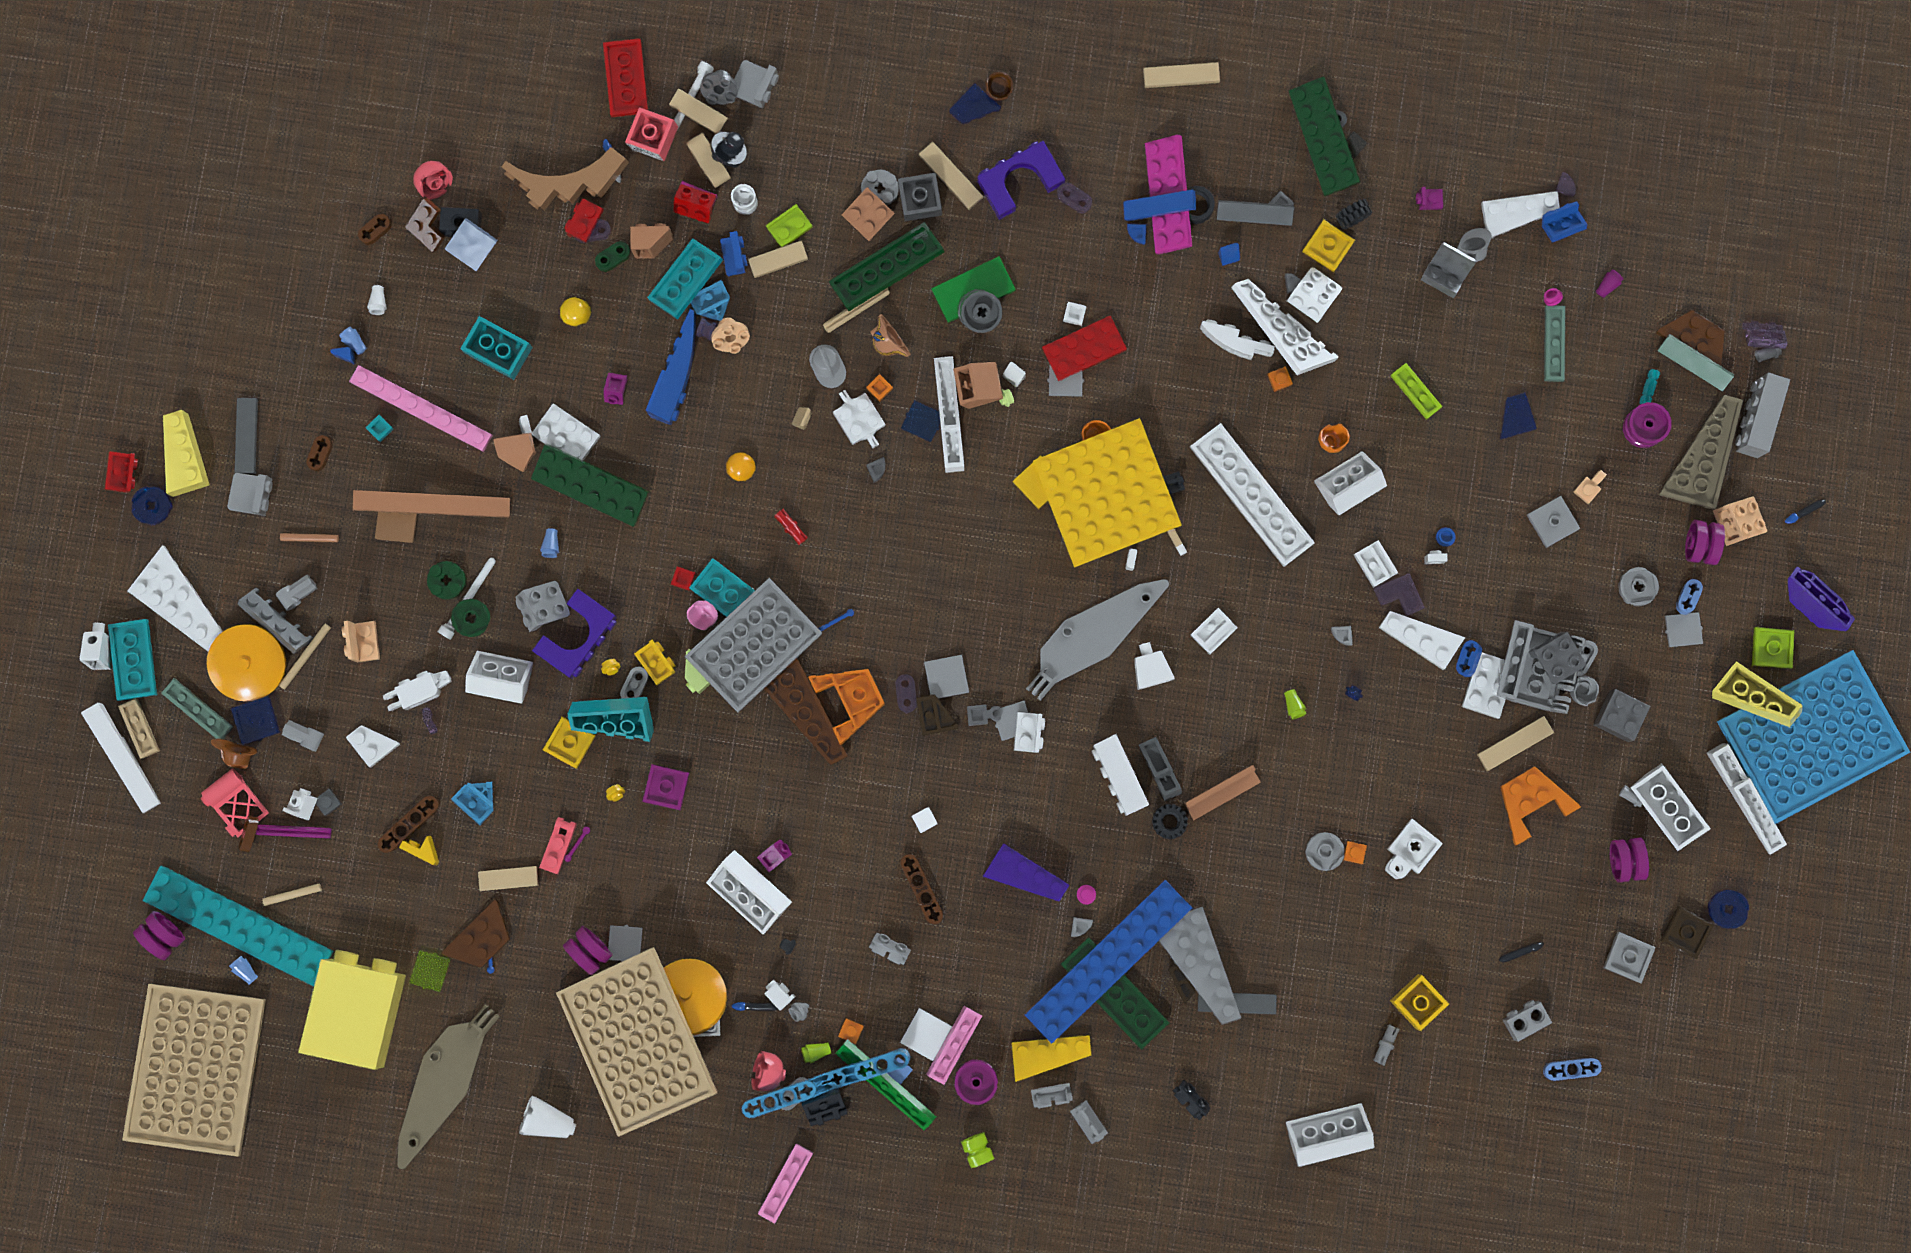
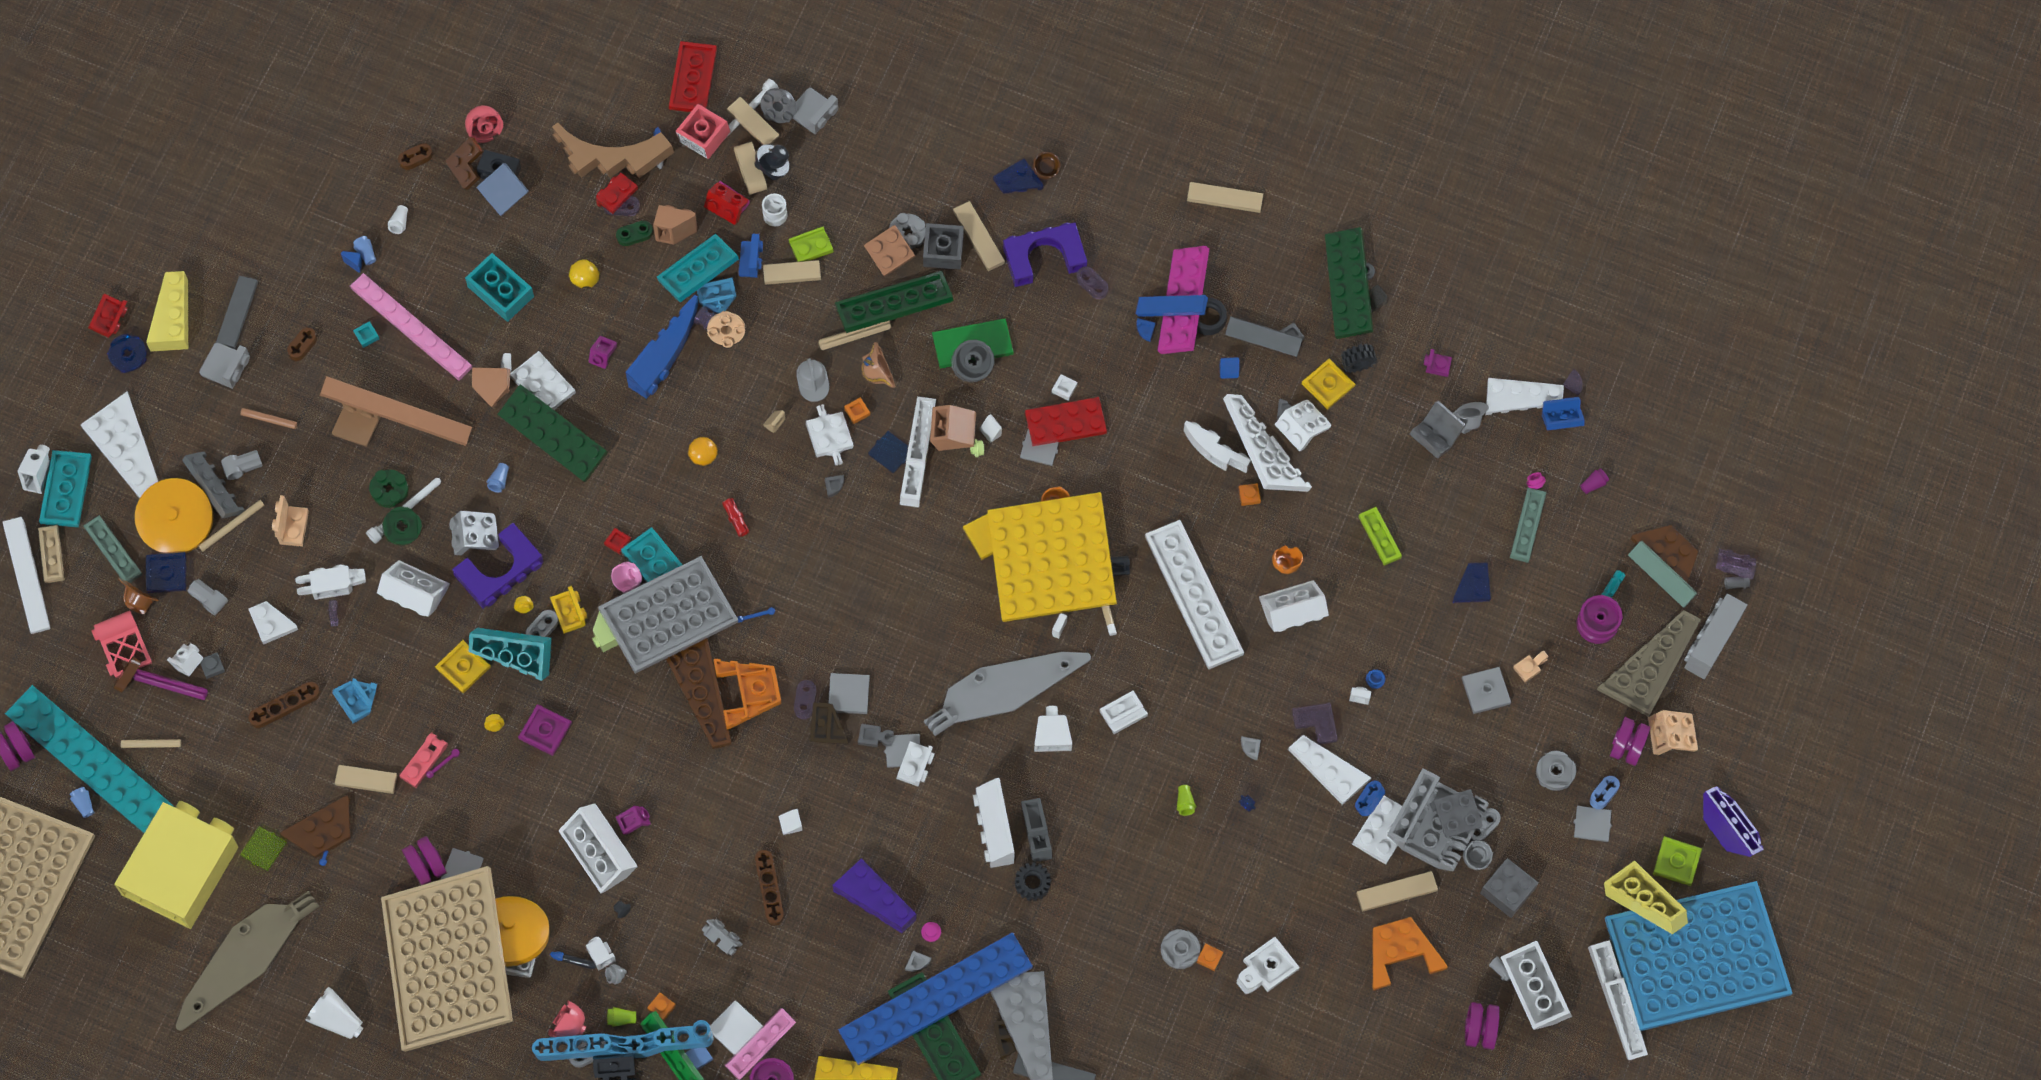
camera: 10 degrees right, 15 degrees down
(426, 852) = (293, 734): yellow slope -> none
(1222, 792) = (1091, 866): nougat fence -> none
(1375, 563) = (1299, 687): white plate -> none
(1805, 511) = (1740, 740): black piece -> none

